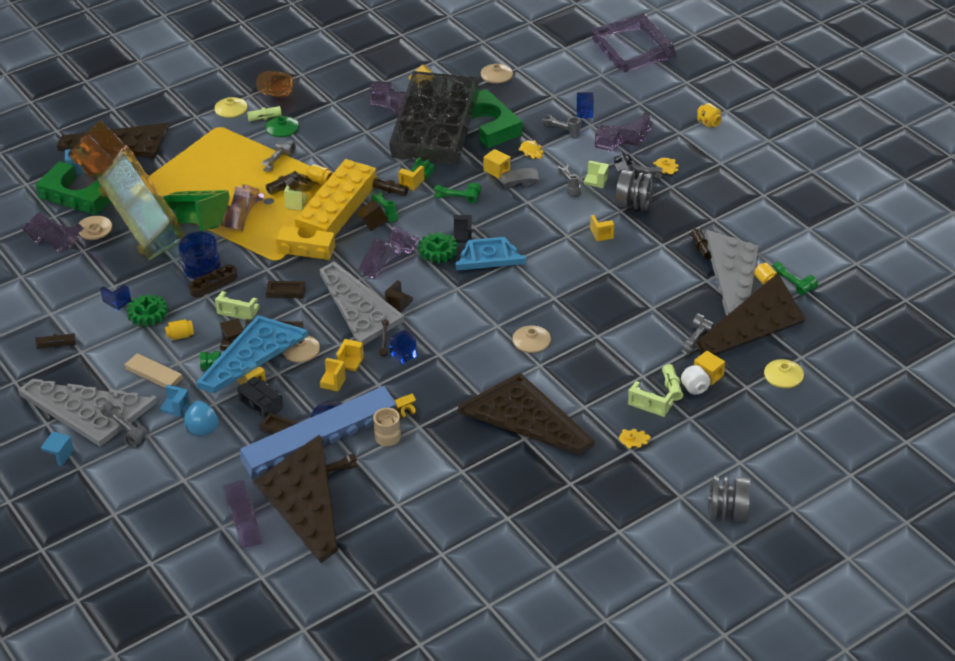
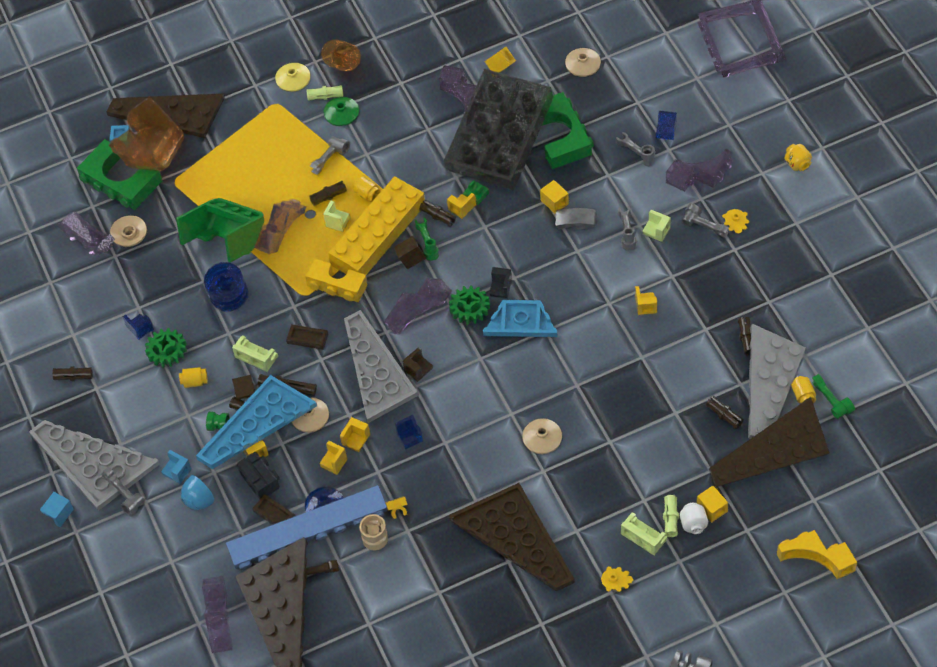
camera: 15 degrees right, 15 degrees up
(140, 206) = (174, 216): windscreen -> none
(153, 371) = (161, 425): tan tile -> none
(223, 275) = (252, 314): dark brown beam -> none
(299, 182) = (341, 202): dark brown beam -> none
(383, 352) = (389, 432): dark brown hinge -> none
(471, 194) = (519, 234): green brick -> none
(531, 149) = (596, 178): yellow piece -> none
(624, 162) = (688, 216): black hinge -> none
(634, 190) = (689, 258): flat silver wheel -> none
(698, 300) = (724, 412): none -> dark brown pin
(702, 325) = (720, 446): flat silver brick -> none
(783, 373) = (789, 526): light yellow dish -> none
(810, 388) = (809, 546): none -> yellow arch

